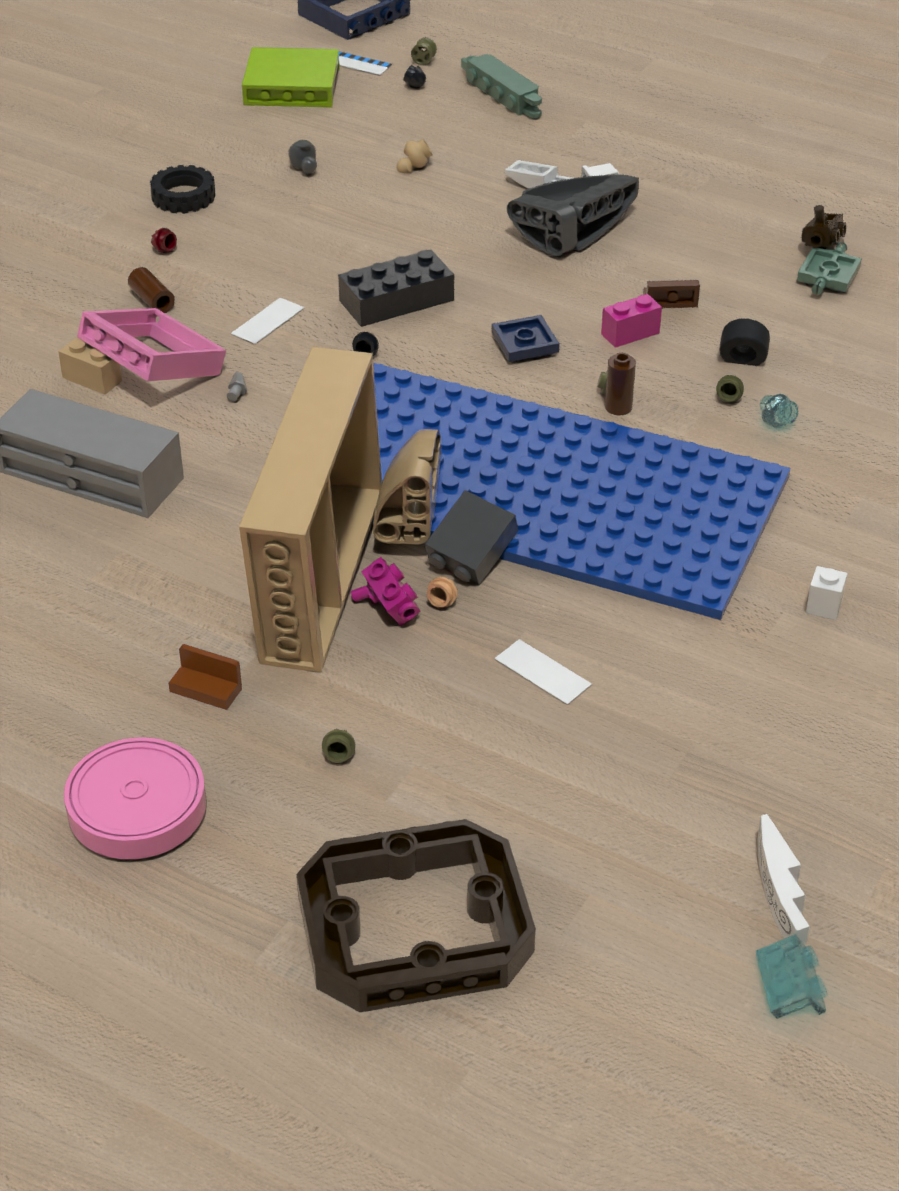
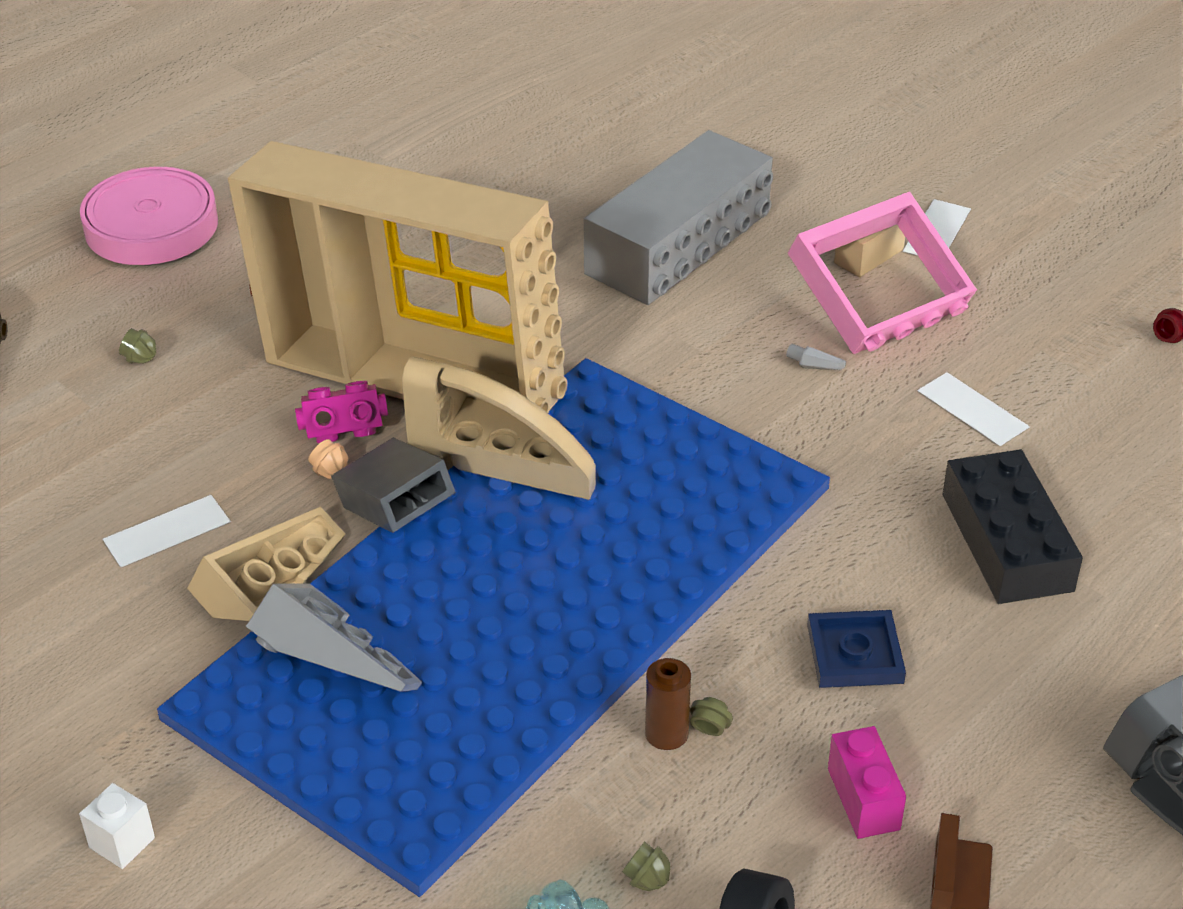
camera: 105 degrees right, 0 degrees up
(36, 348) = (946, 219): none -> white sticker
(151, 289) = (1042, 302): reddish brown brick -> none
(366, 343) = (873, 477): black plate -> none
(588, 596) = (240, 575): none -> tan wedge
(642, 530) = (314, 628): none -> light grey wedge

